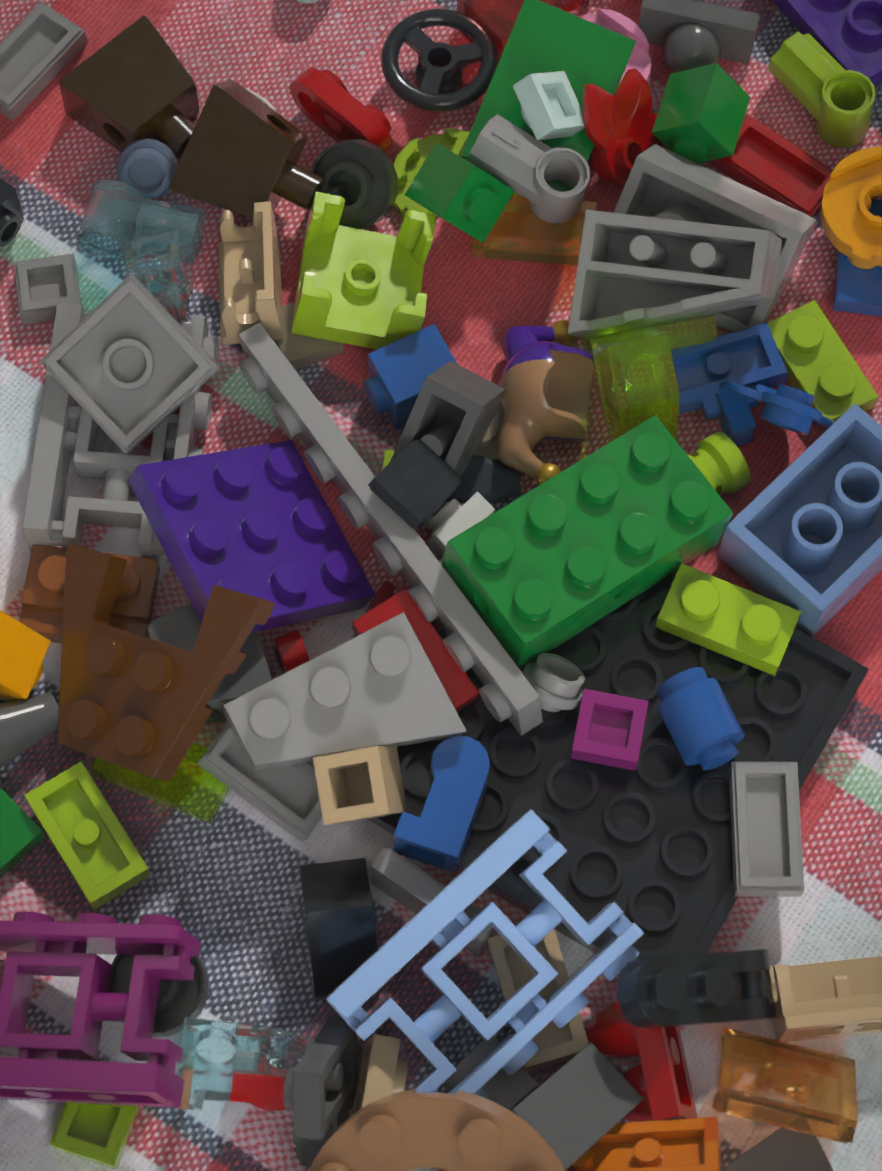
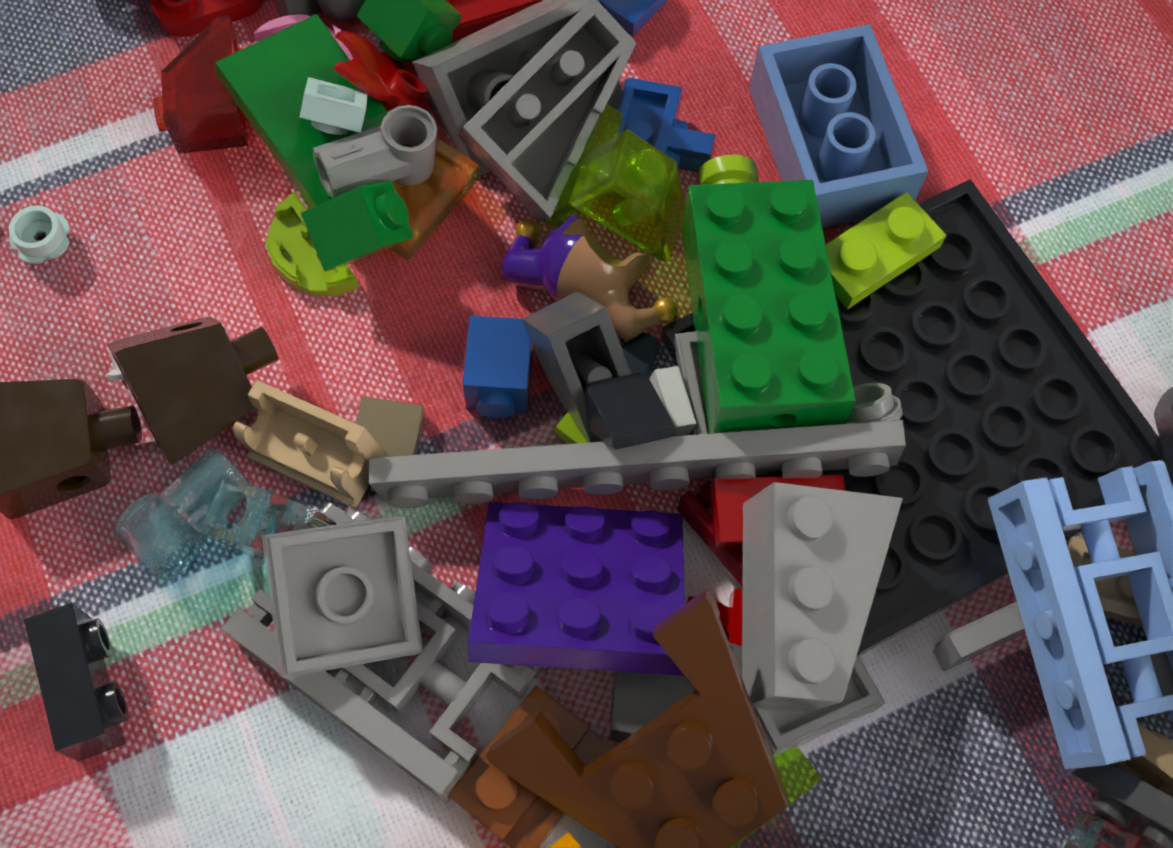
camera: 60 degrees left, 0 degrees up
(43, 284) = (184, 635): light grey tile -> none
(147, 167) = (129, 473): sand blue plate -> none
(336, 112) = (200, 282): red plate -> none
(337, 920) = (978, 716): black slope -> none
(358, 281) = (378, 355): lime panel -> none
(360, 784) = (905, 623): tan brick -> none
(362, 177) = (283, 303): pearl dark grey plate -> none
(439, 87) = (219, 200): black piece -> none
(451, 807) = (942, 559): blue leg -> none
(609, 729) = (935, 390): magenta plate -> none
(699, 719) = (965, 316): blue brick -> none
(766, 829) = (1077, 326): light grey tile -> none
(783, 407) = (730, 97): blue plate -> none
(820, 362) = (701, 68): lime plate -> none

